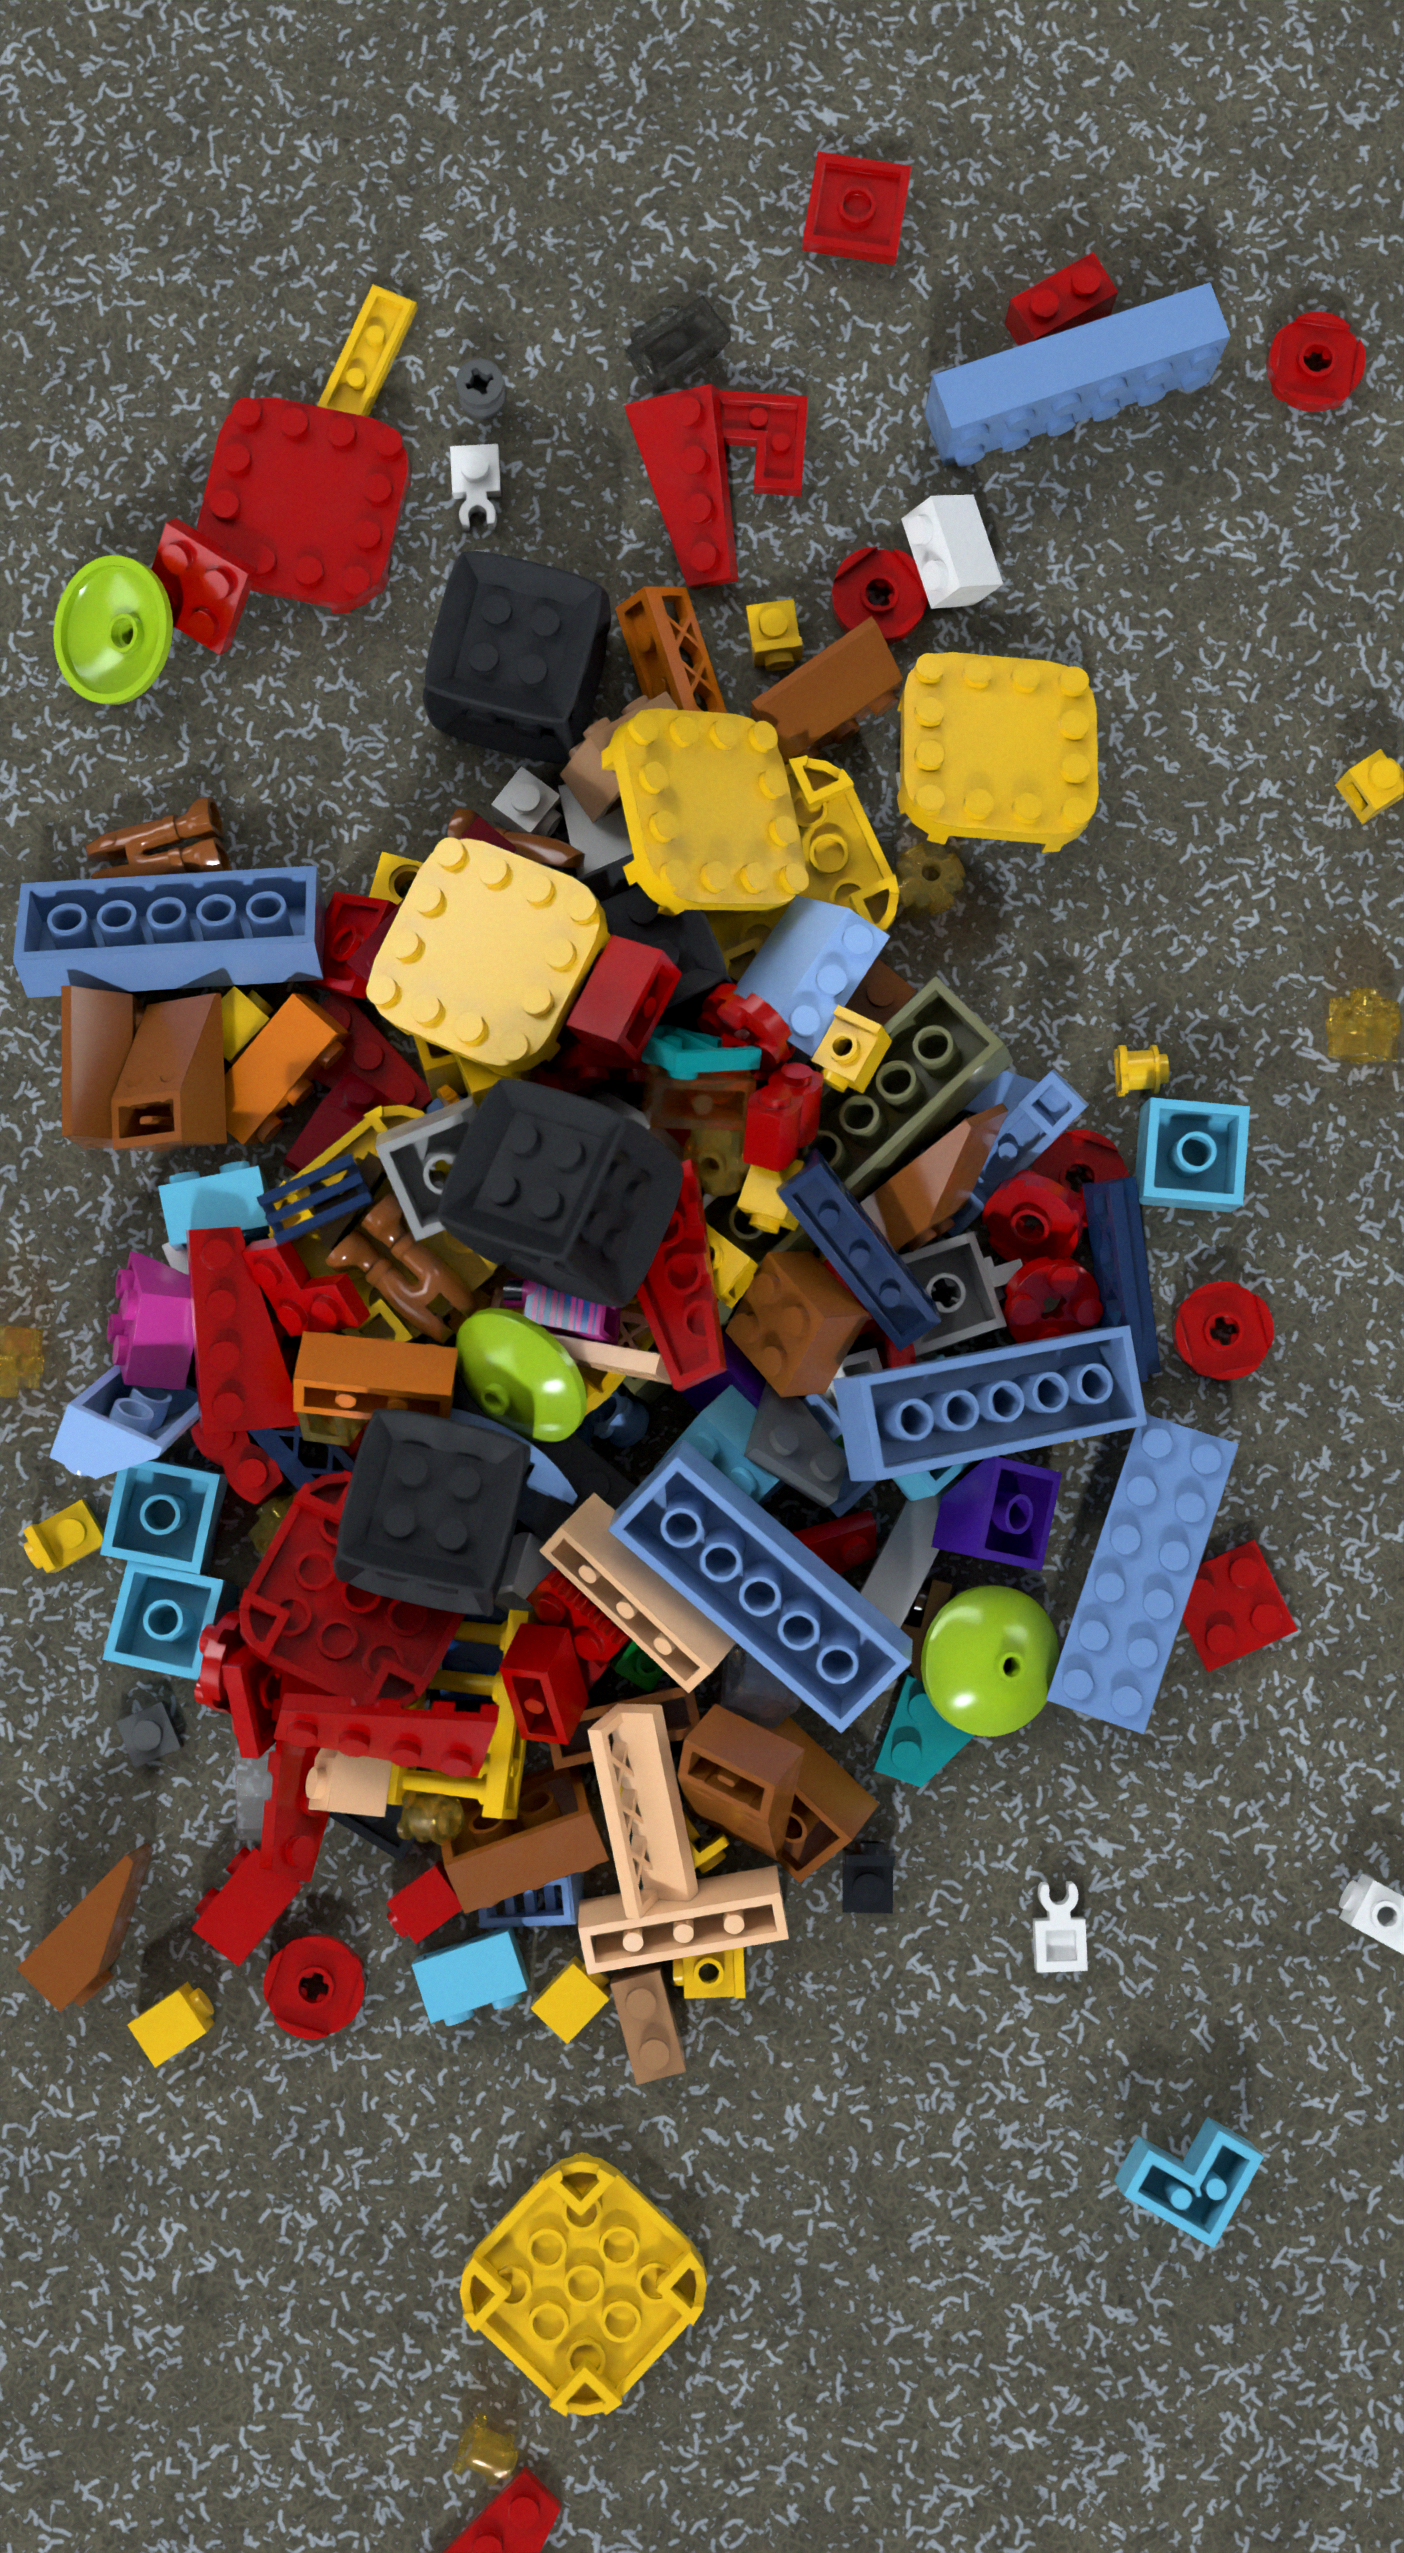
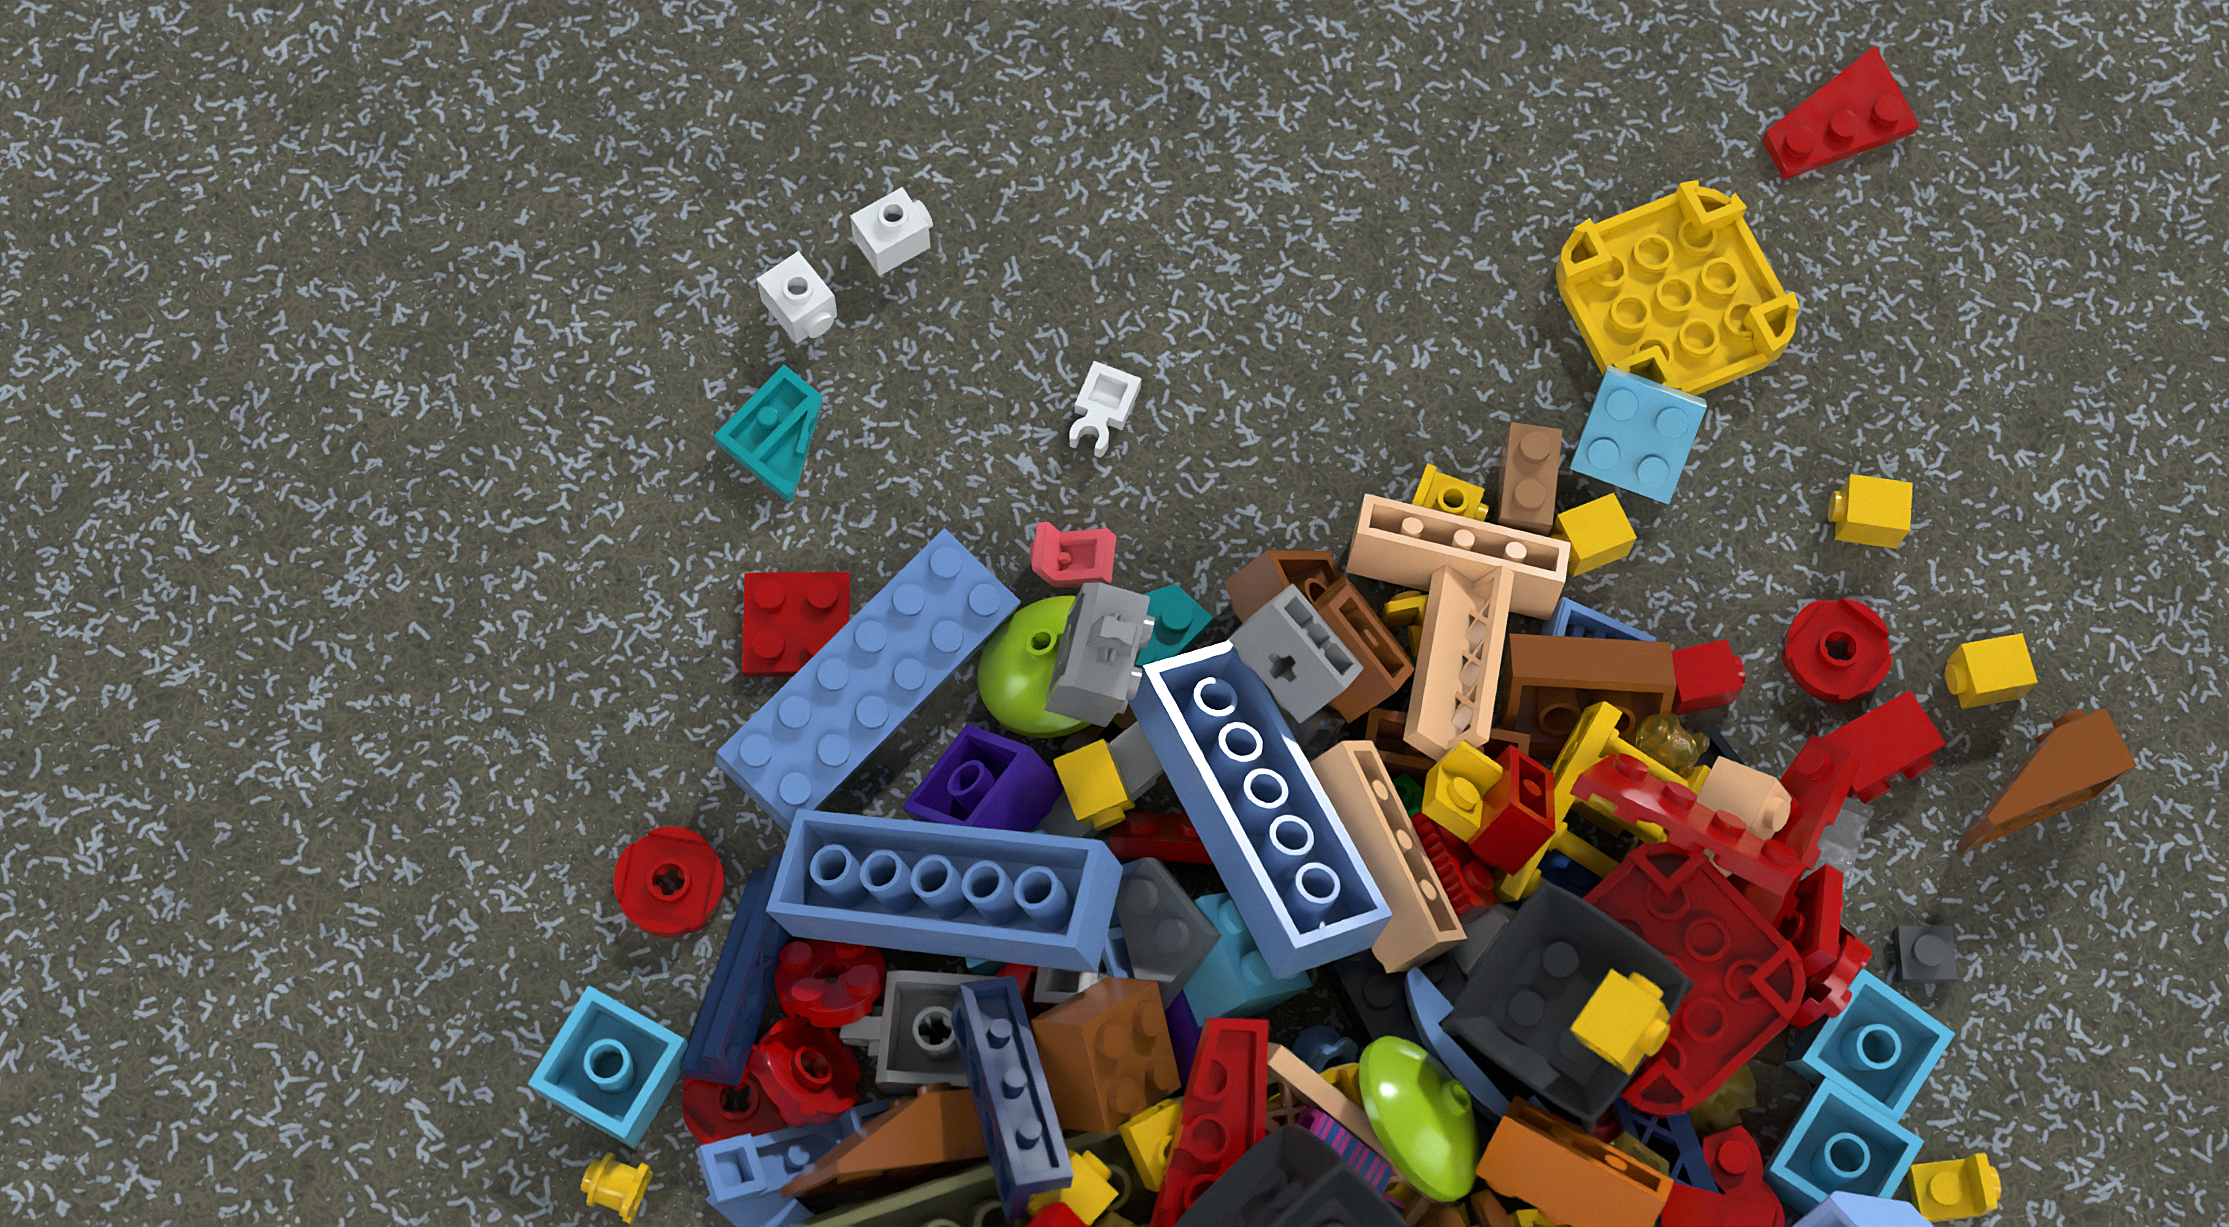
camera: 160 degrees left, 15 degrees down
(328, 2137) = (1871, 511): none -> yellow brick
(379, 1493) = (1623, 1020): none -> yellow brick
(471, 1975) = (1681, 595): medium azure brick -> none
(486, 2451) = (1817, 200): clear yellow brick -> none
(565, 2114) = (1638, 434): none -> medium azure brick
(597, 1677) = (1457, 789): none -> yellow bracket
(784, 1733) = (1296, 654): none -> light grey brick
(867, 1878) = (1261, 524): black bracket -> none
(907, 1555) = (1095, 785): none -> yellow brick
(954, 1664) = (1098, 654): none -> light grey hinge
(1021, 1771) = (1072, 556): none -> coral bracket
(1193, 2192) = (1085, 144): medium azure brick -> none
(1330, 2022) = (892, 230): none -> white brick
(1337, 1775) = (774, 431): none -> teal wing
(1363, 1027) = (362, 1124): clear yellow brick -> none

